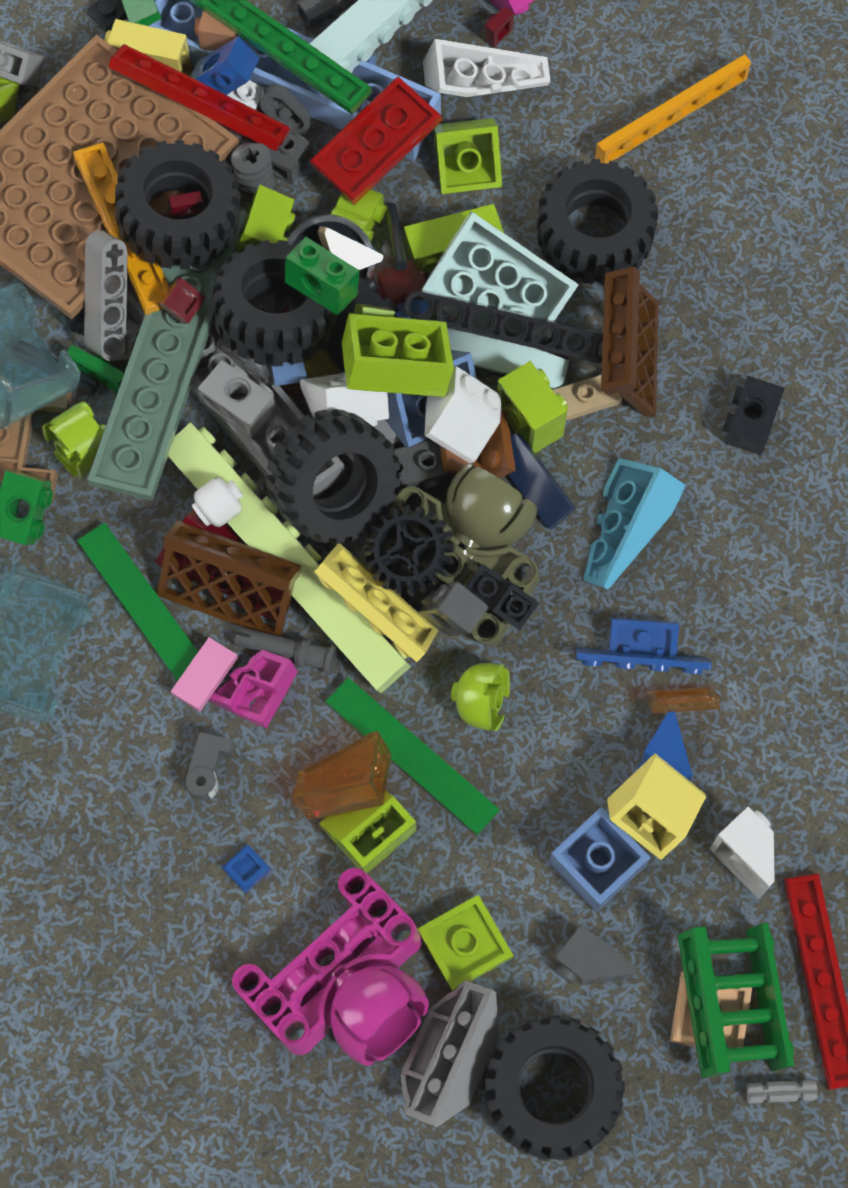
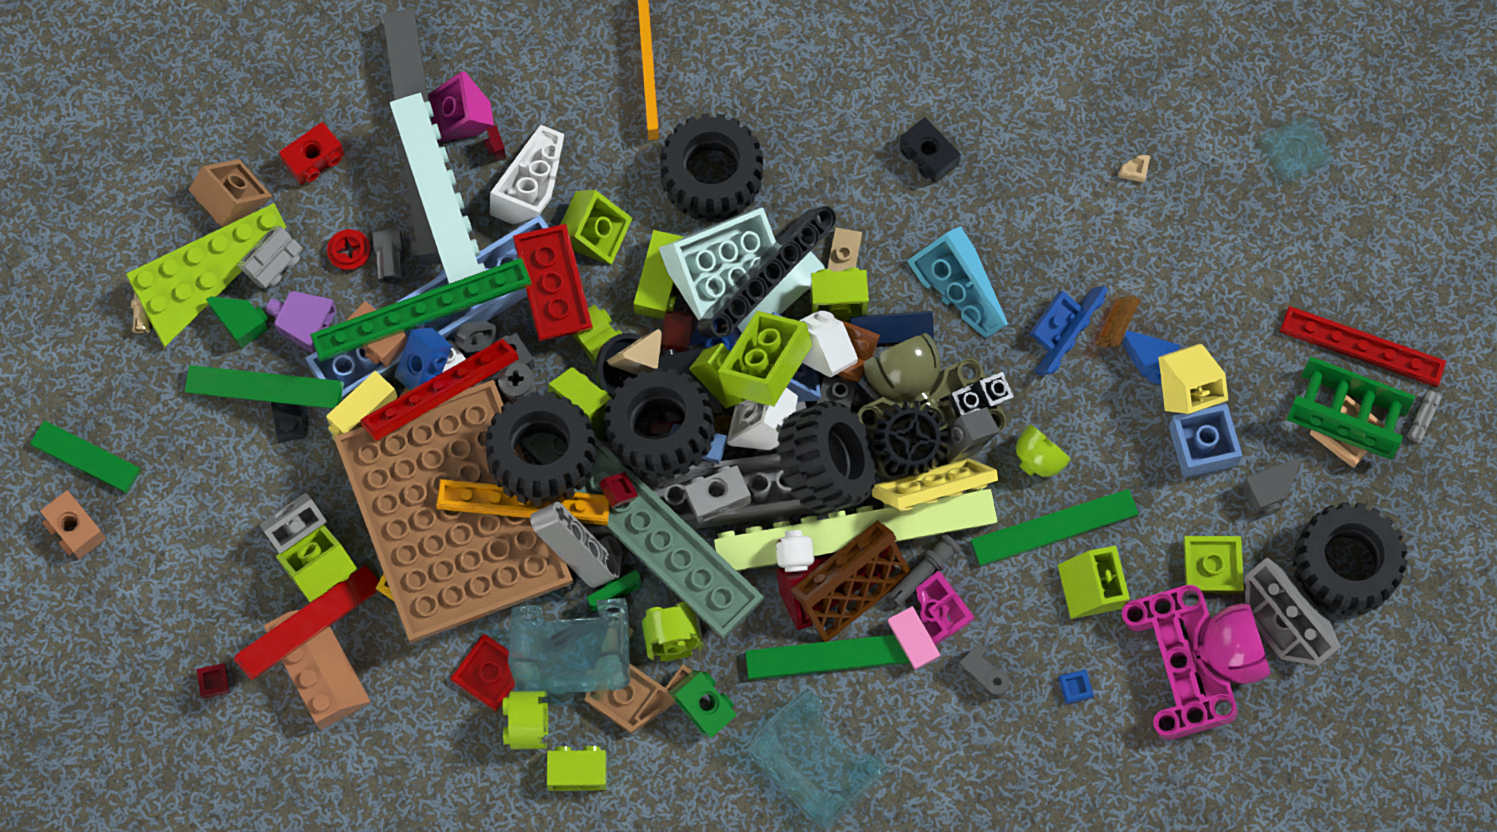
camera: 60 degrees left, 0 degrees up
(185, 205) = (544, 446): dark red plate -> none
(321, 275) = (674, 374): green brick -> none
(345, 780) = (1054, 580): clear orange slope -> none
(396, 237) = (637, 315): black bar -> none
(630, 340) = (826, 198): reddish brown fence -> none
(748, 850) = (1254, 339): white slope -> none

